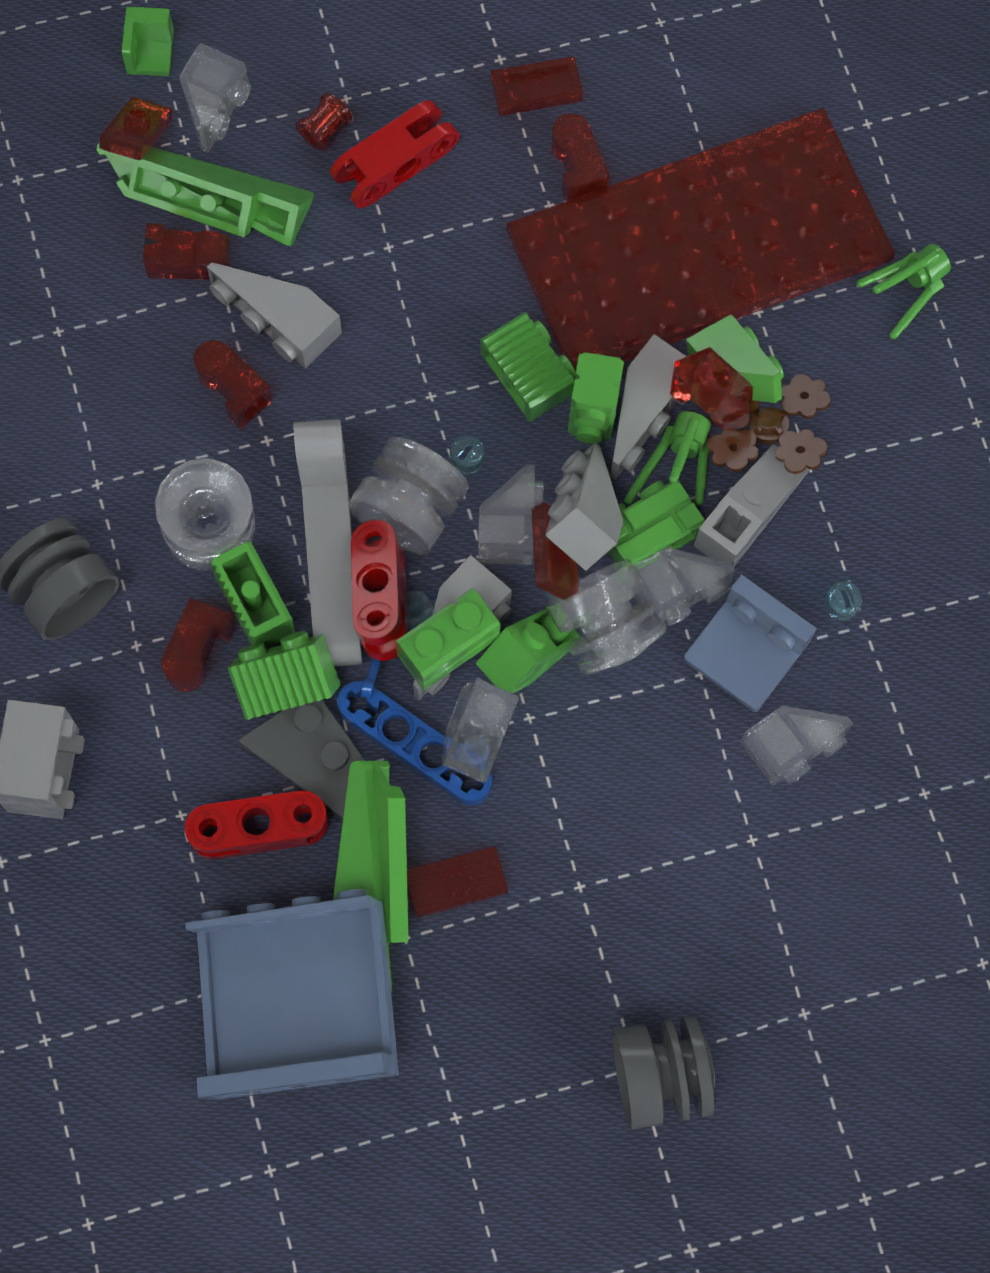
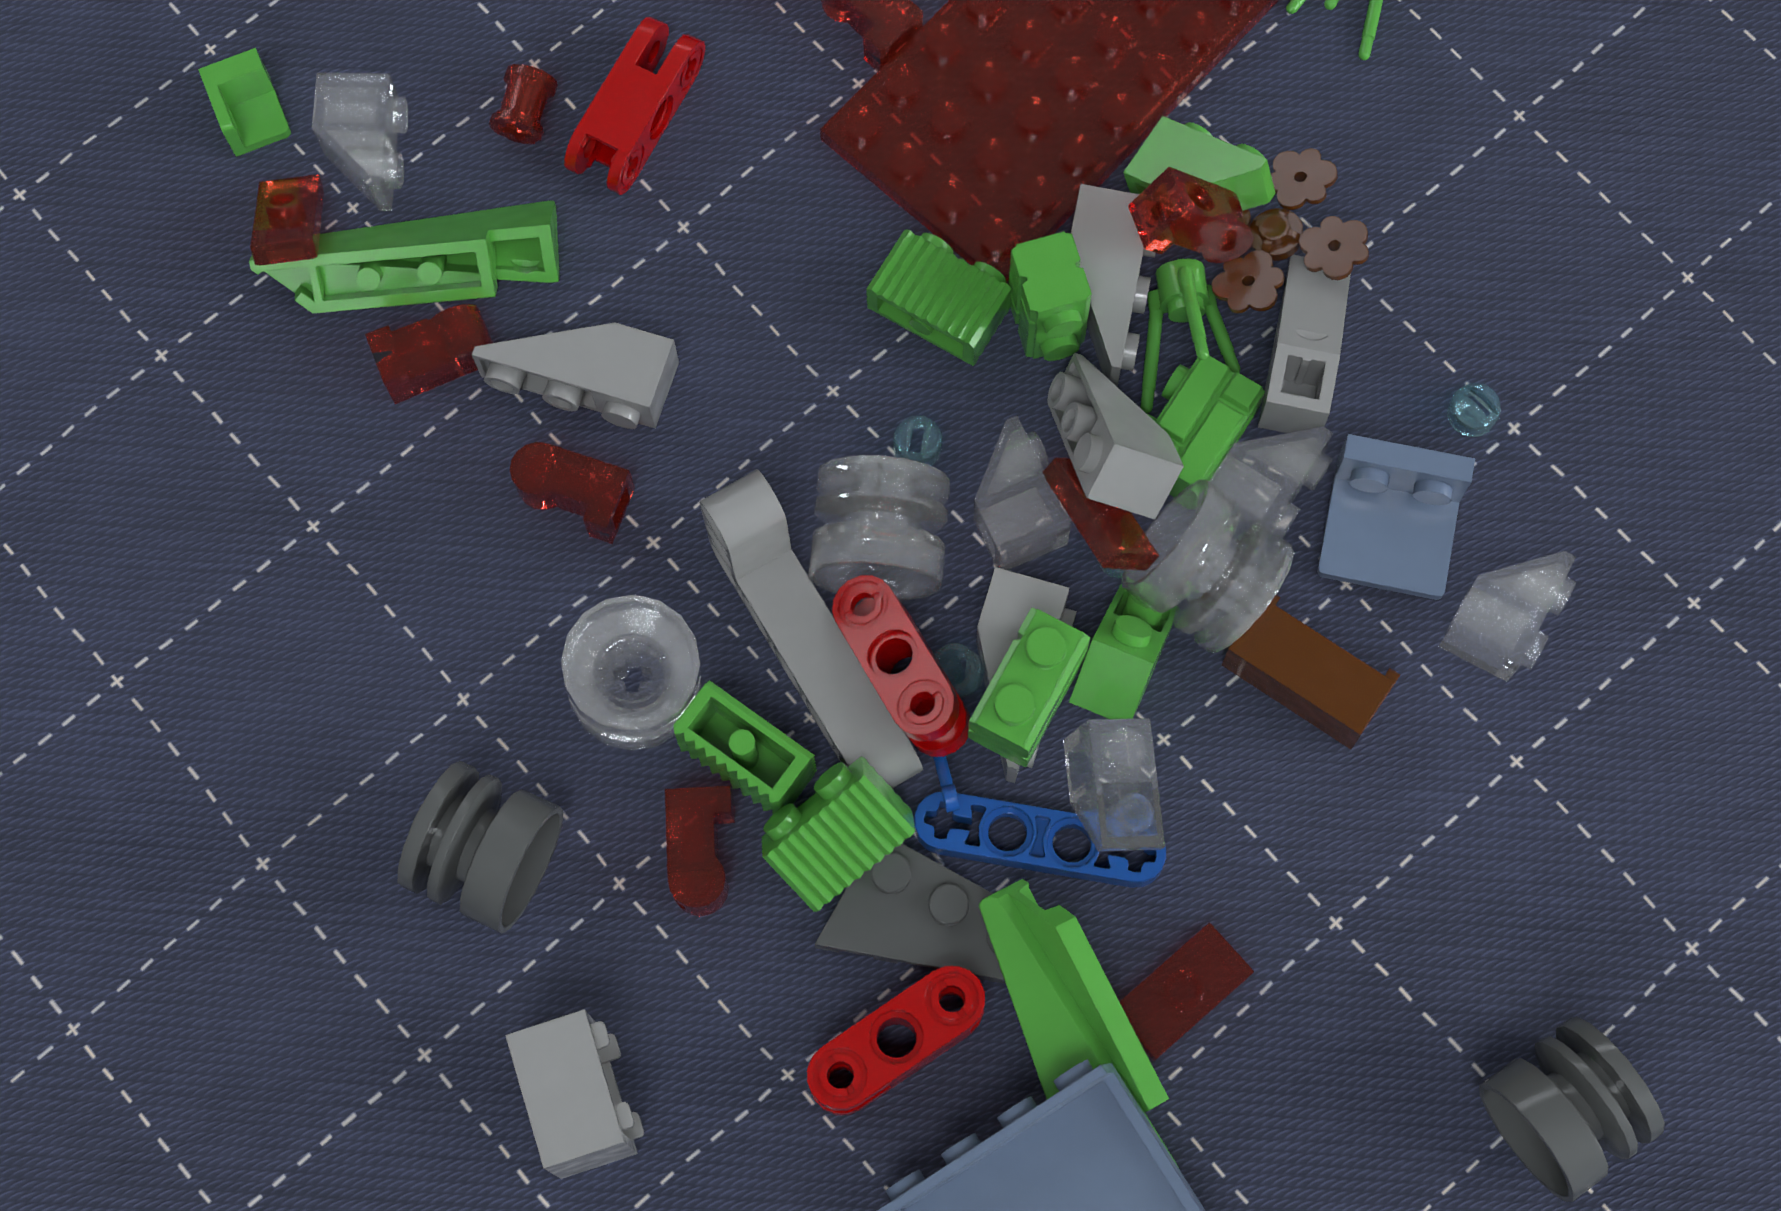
camera: 20 degrees left, 0 degrees up
(642, 718) = (1309, 674): none -> reddish brown brick

